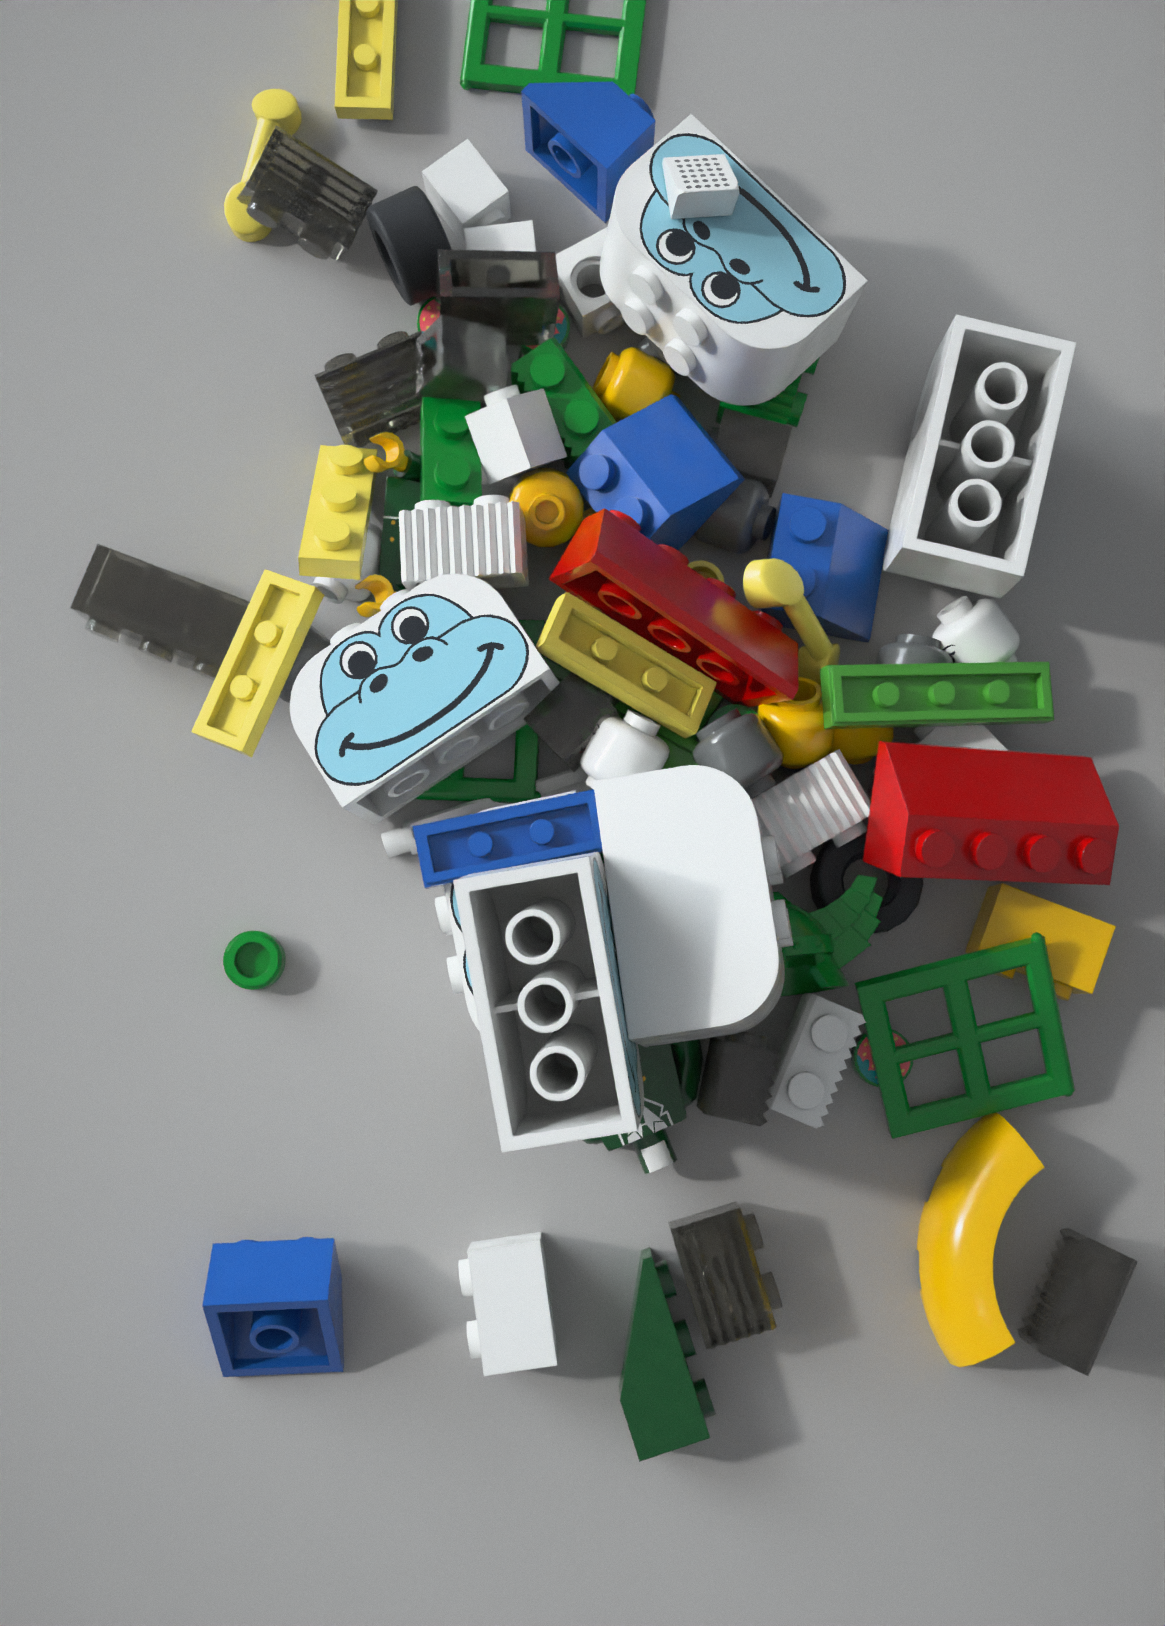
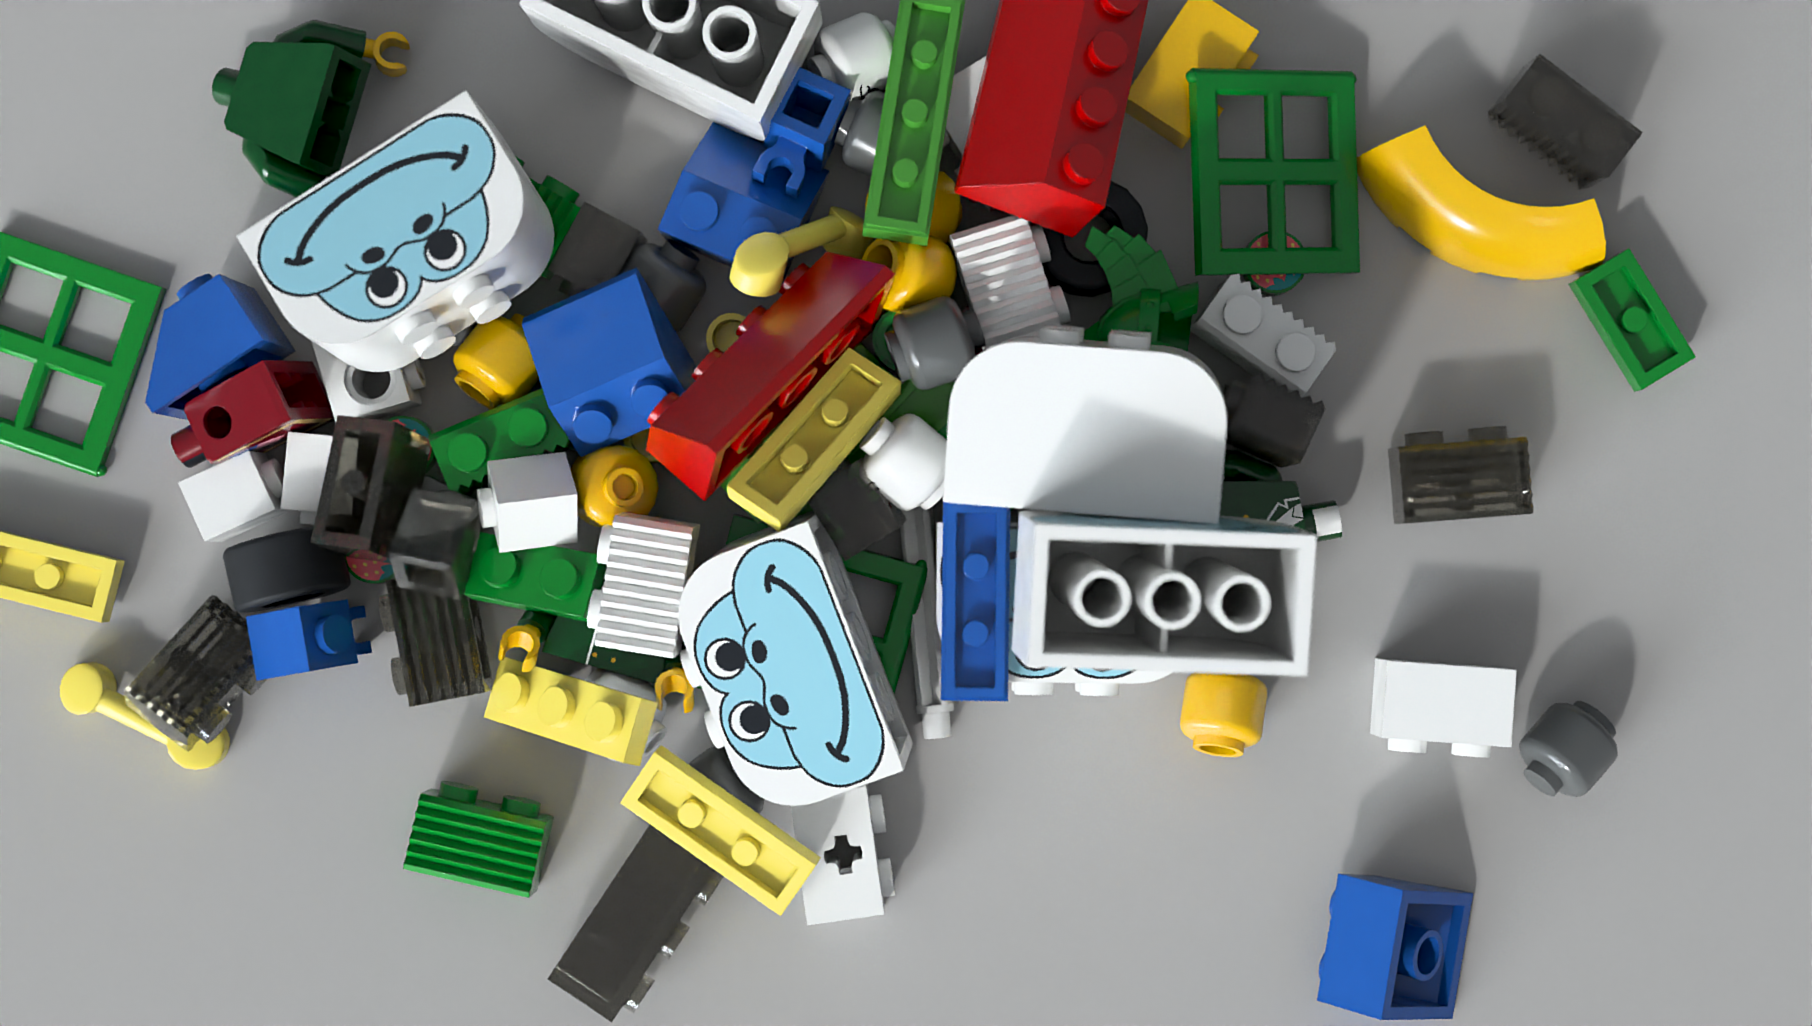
camera: 75 degrees left, 5 degrees up
(211, 463) = (479, 839): none -> green brick
(229, 778) = (849, 891): none -> white brick
(254, 960) = (1028, 901): green tile -> none
(355, 274) = (305, 639): none -> blue brick
(458, 1099) = (1223, 712): none -> yellow head
(494, 1433) = (1568, 749): none -> dark grey head
(543, 187) = (253, 412): none -> dark red torso
(655, 1384) = (1554, 573): dark green slope -> none
(700, 186) = (325, 246): white slope -> none
(830, 171) = (301, 99): none -> dark green torso
(901, 602) = (803, 129): none -> blue brick
(908, 1406) = (1632, 320): none -> green plate

